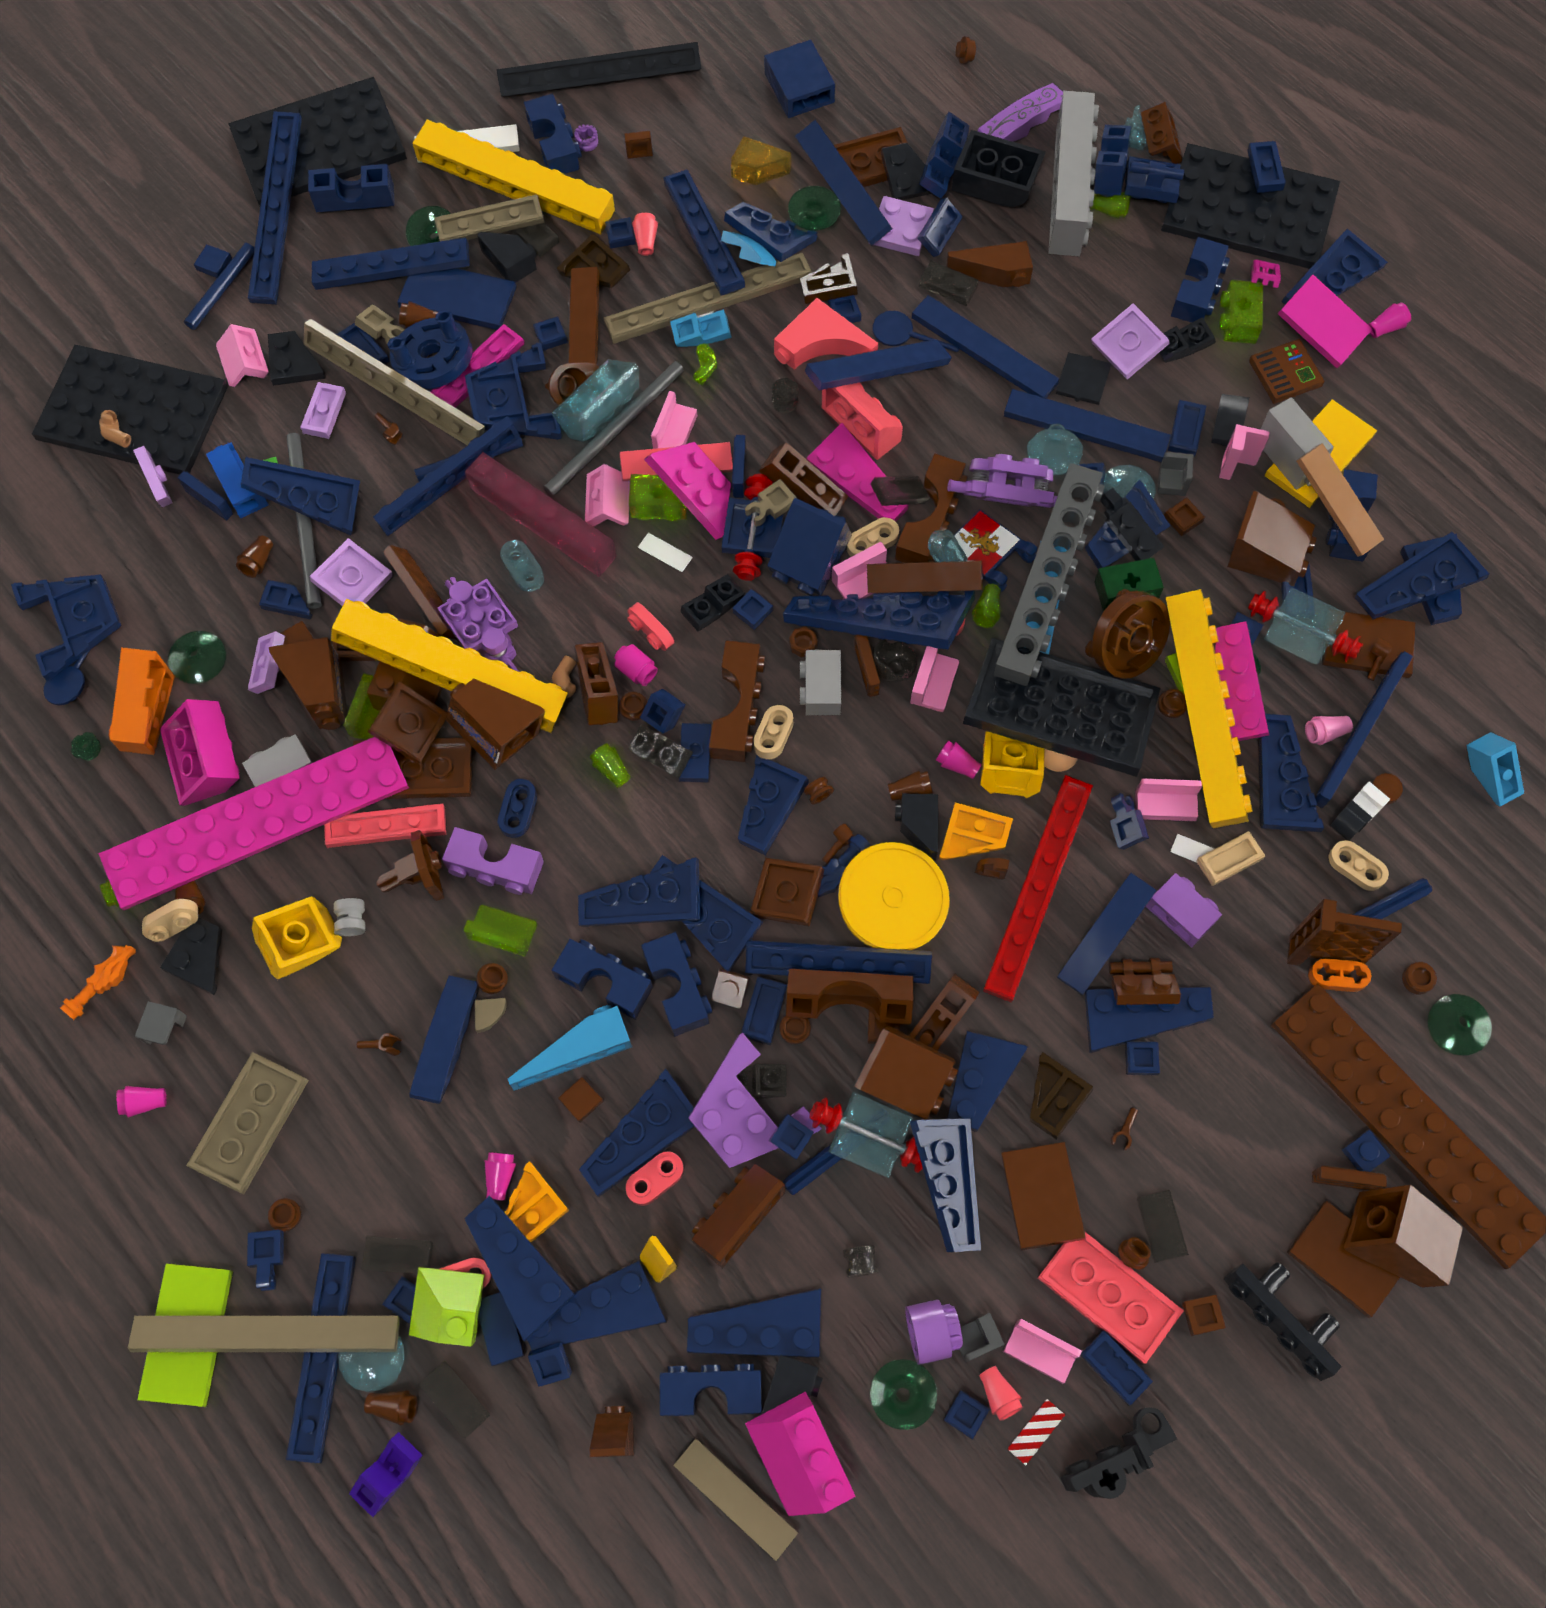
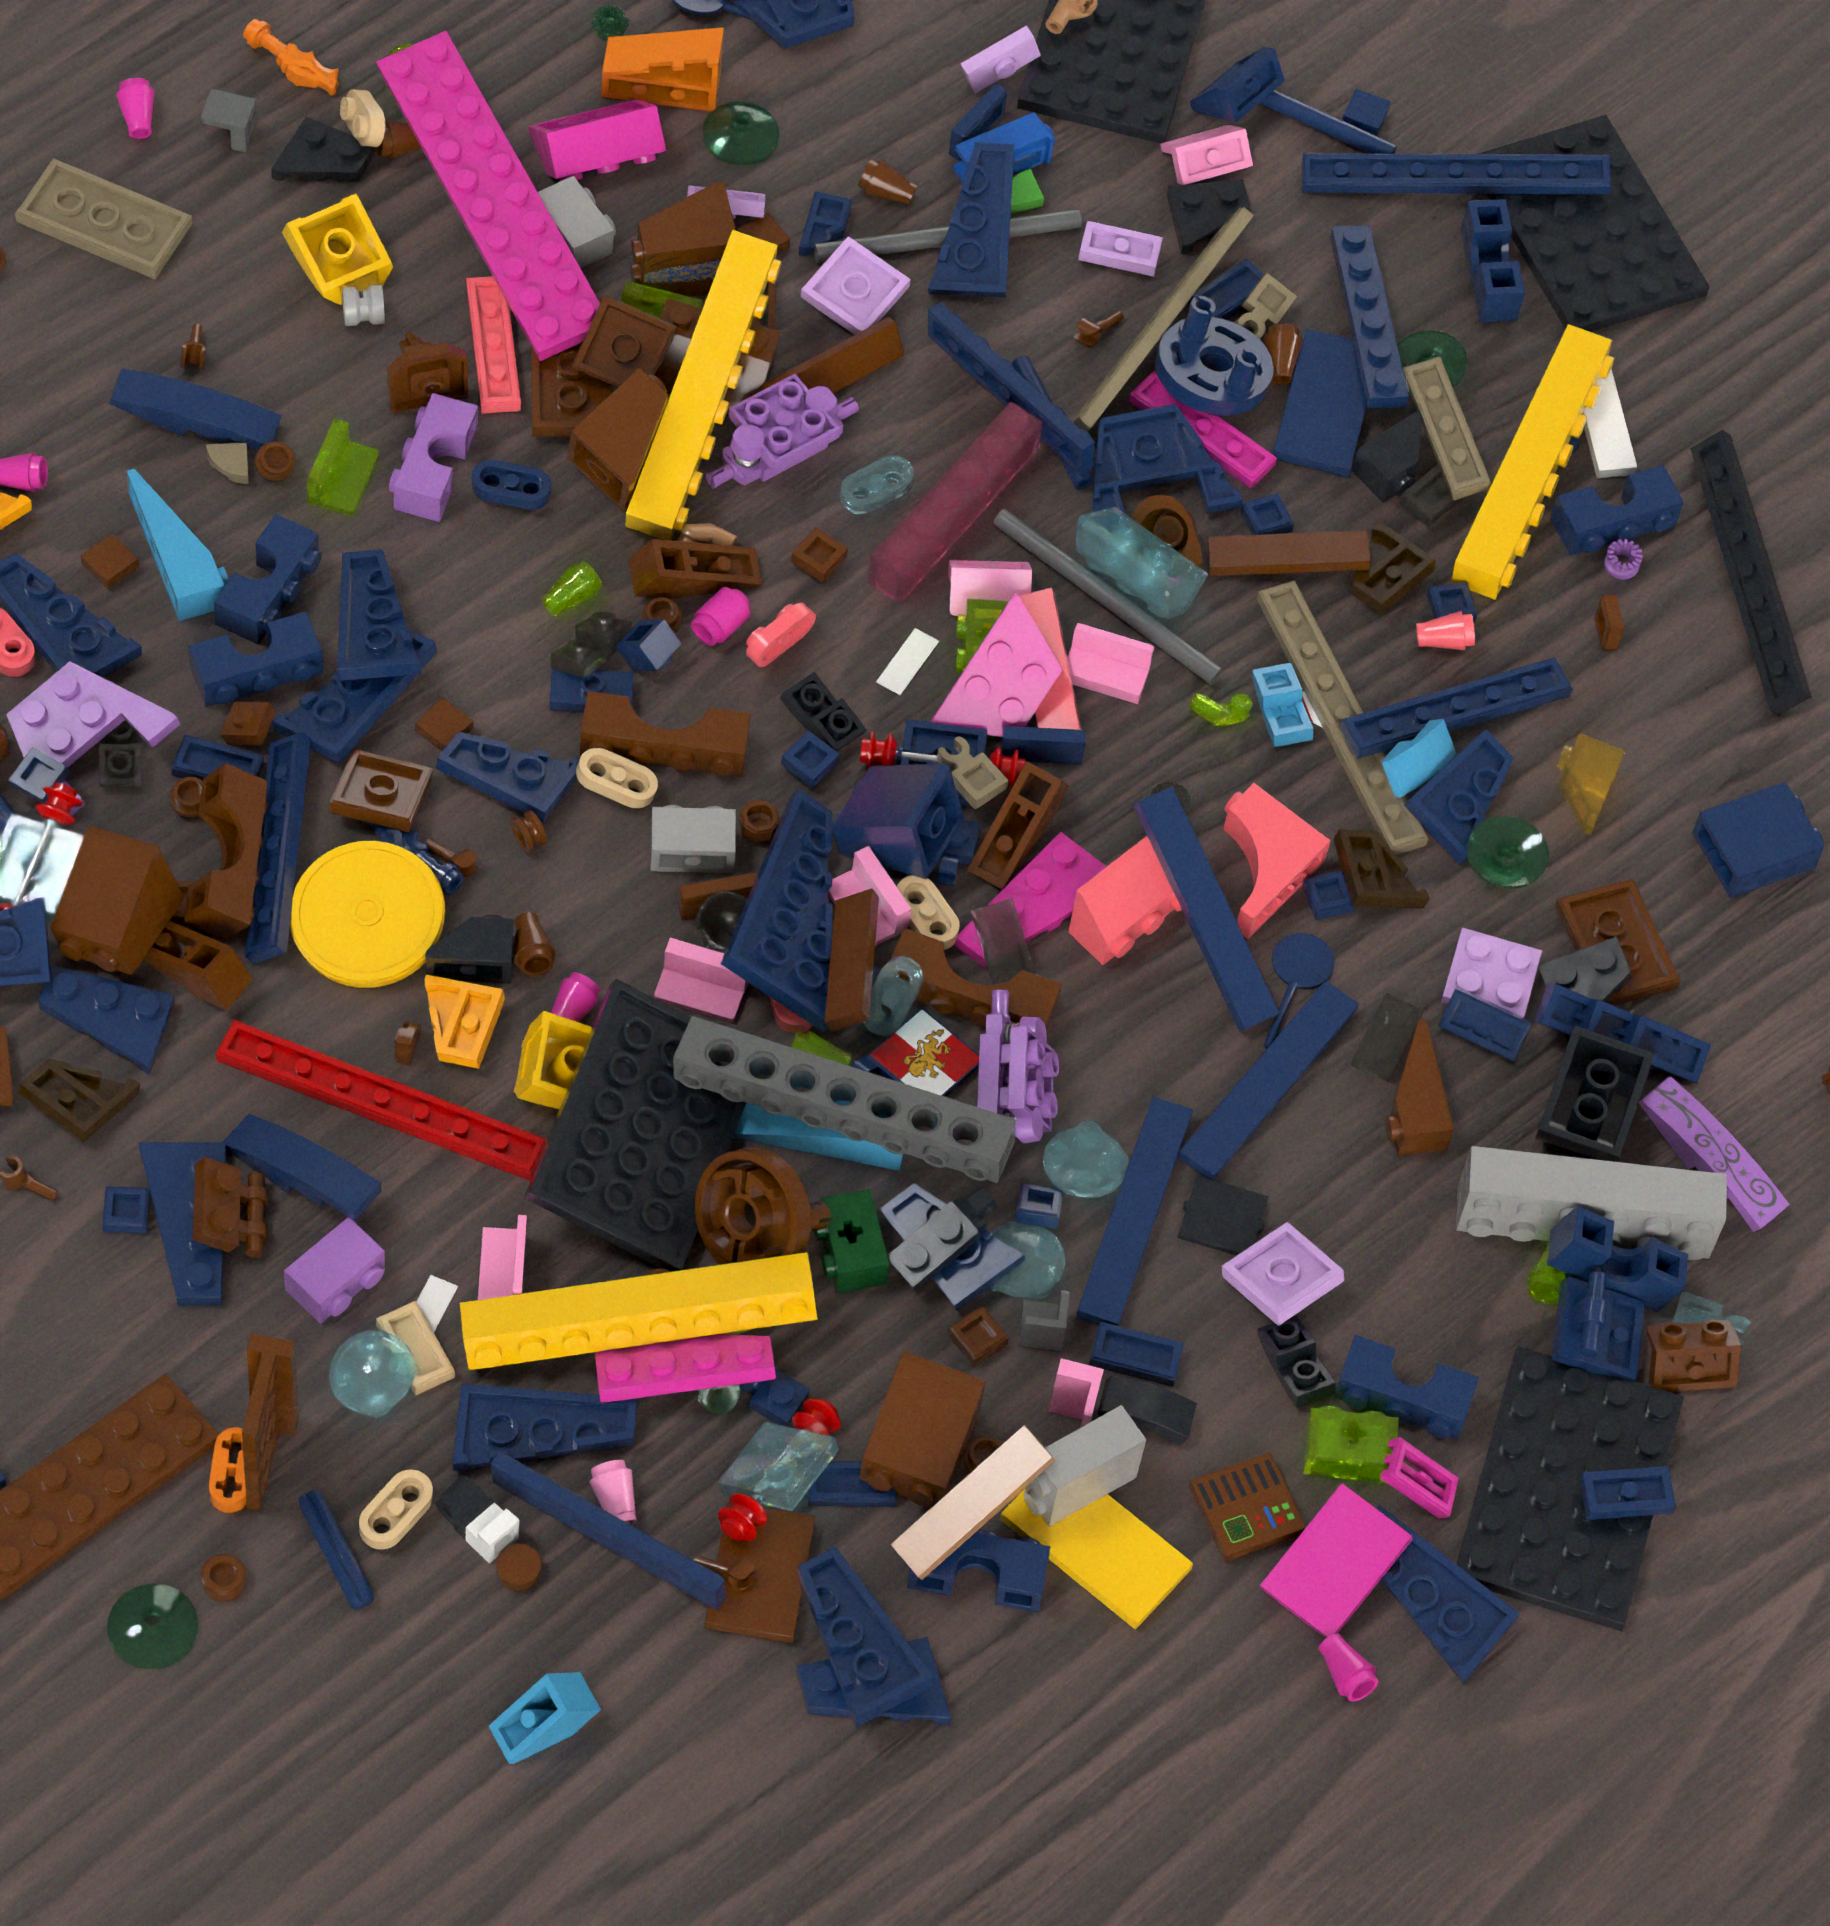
camera: 80 degrees right, 10 degrees down
(205, 333) = (1241, 86): none -> dark blue tile
(581, 602) = (819, 555): none -> reddish brown plate
(726, 851) = (443, 723): none -> reddish brown tile
(843, 182) = (1558, 891): dark blue tile -> none
(1129, 824) = (464, 1211): dark blue plate -> none
(1258, 883) = (372, 1372): none -> clear light blue dish

